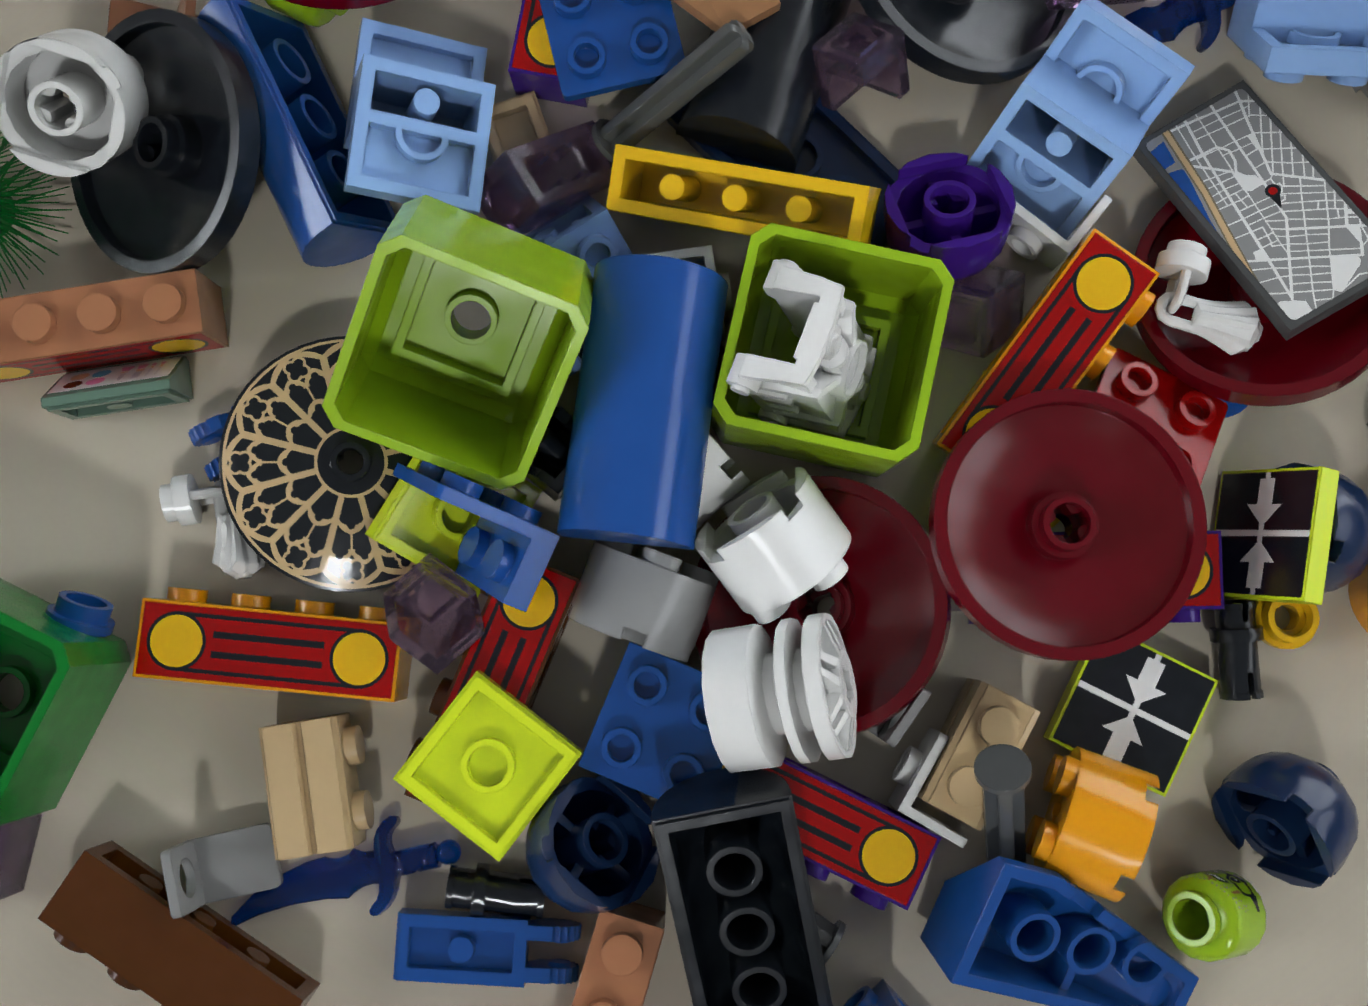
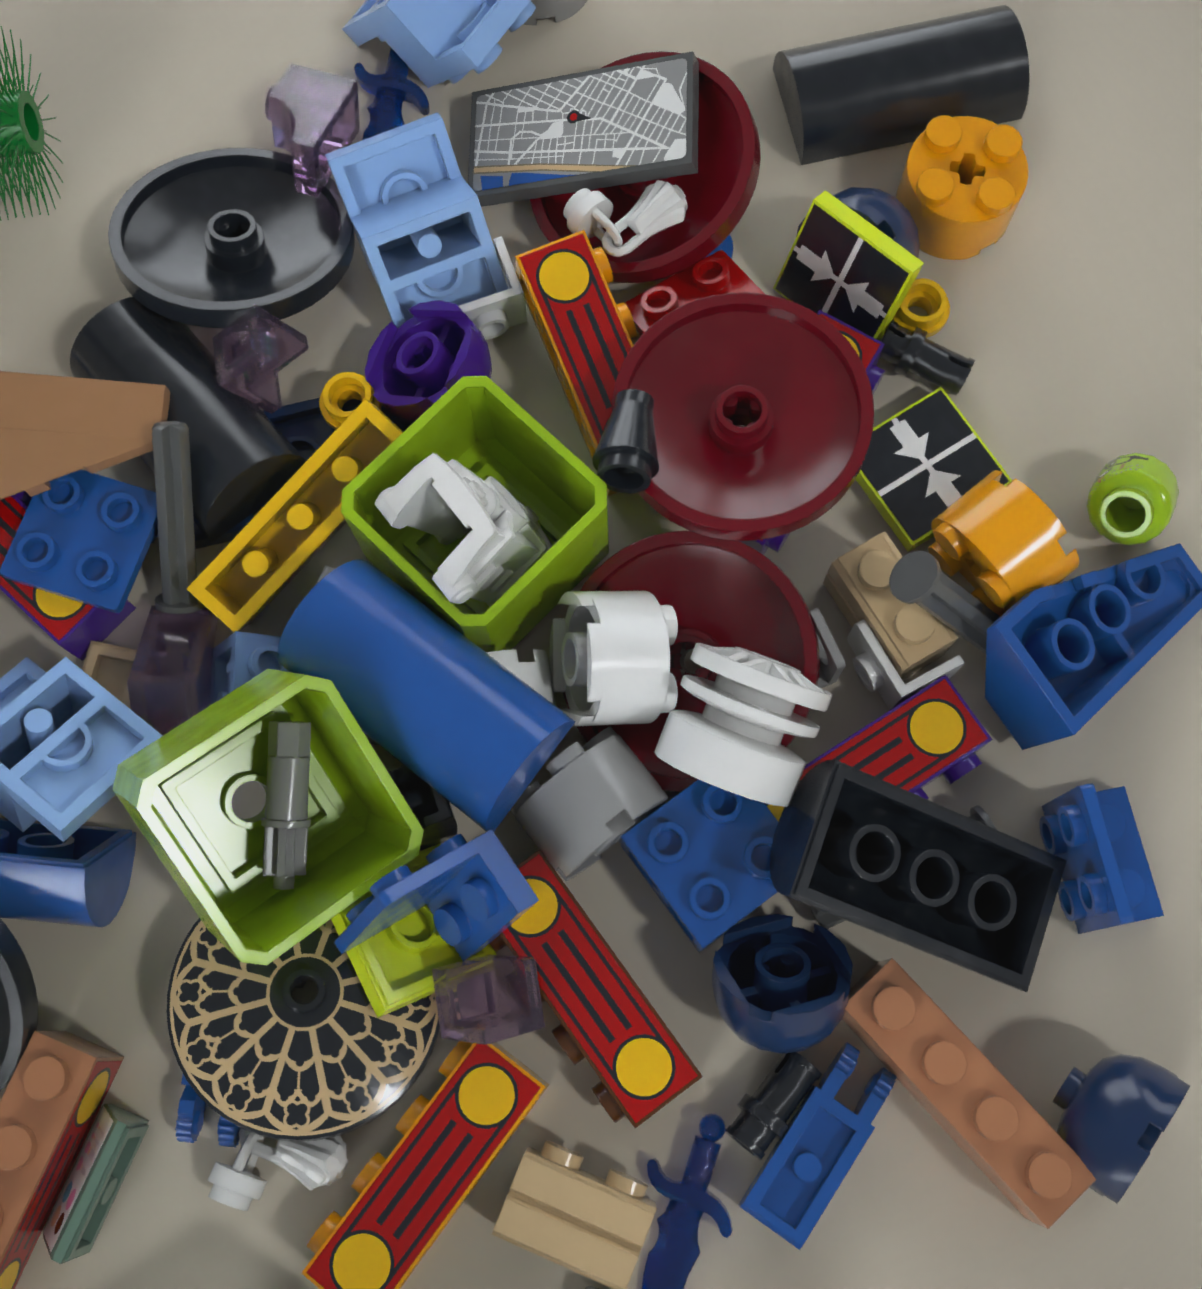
camera: 55 degrees left, 10 degrees down
(484, 350) = (286, 802): none -> light grey piece
(488, 765) = (654, 1030): neon yellow tile -> none
(877, 151) = (340, 390): none -> yellow plate
(969, 444) = (628, 446): none -> black cone
(984, 311) = (529, 381): panel -> none
(1290, 815) = (1083, 395): dark blue cylinder -> none

